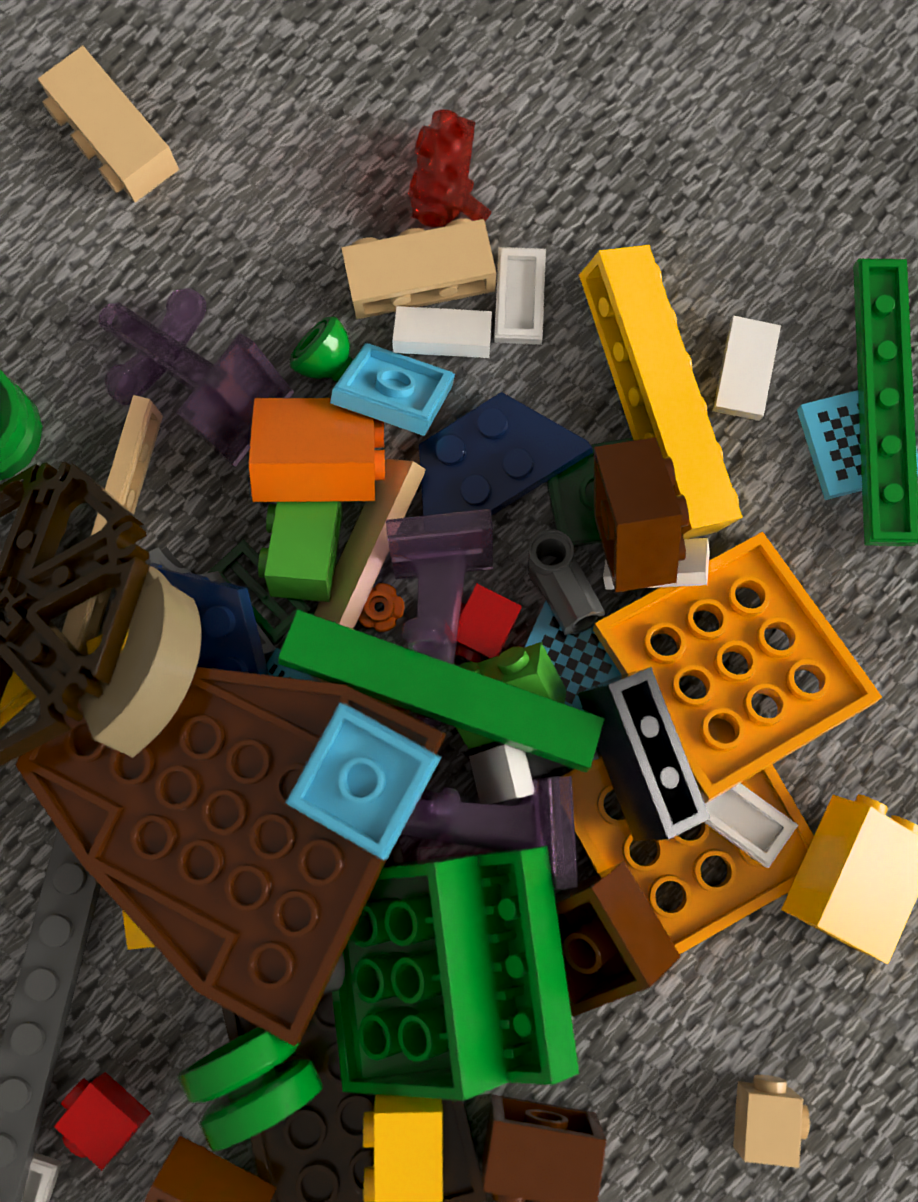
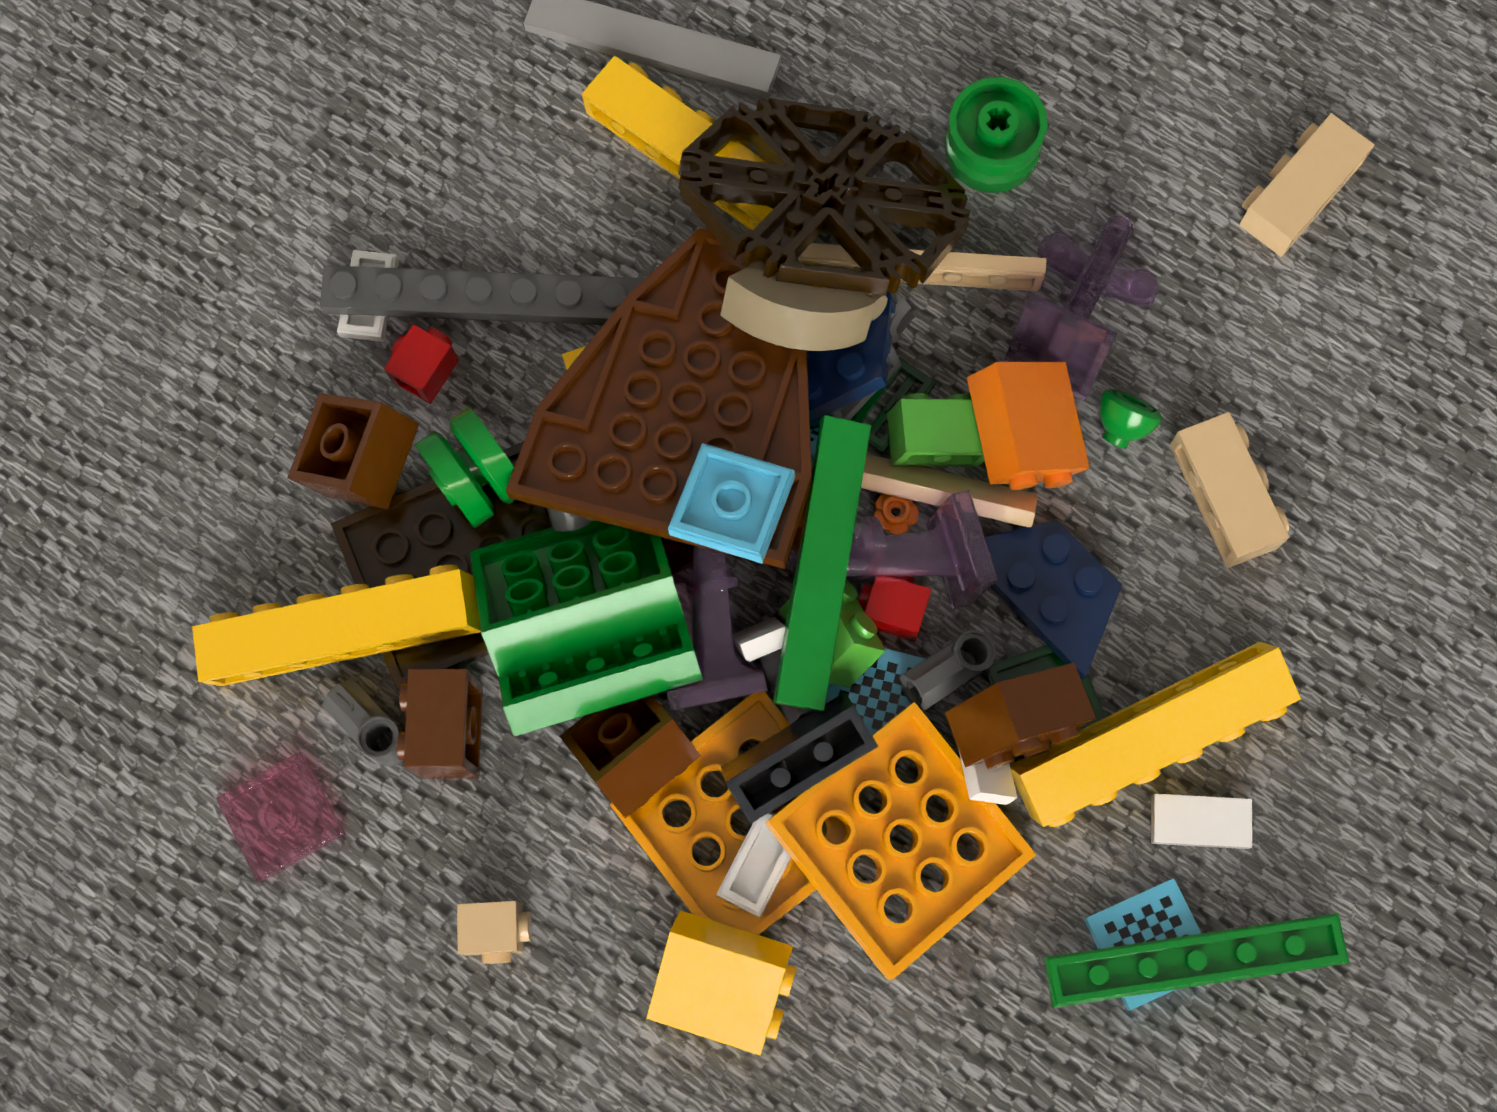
camera: 85 degrees right, 5 degrees down
(393, 388) = (1102, 485): medium azure tile -> none
(441, 180) = (1320, 495): clear red brick -> none
(442, 332) = (1171, 523): white tile -> none
(520, 295) = (1226, 591): white tile -> none

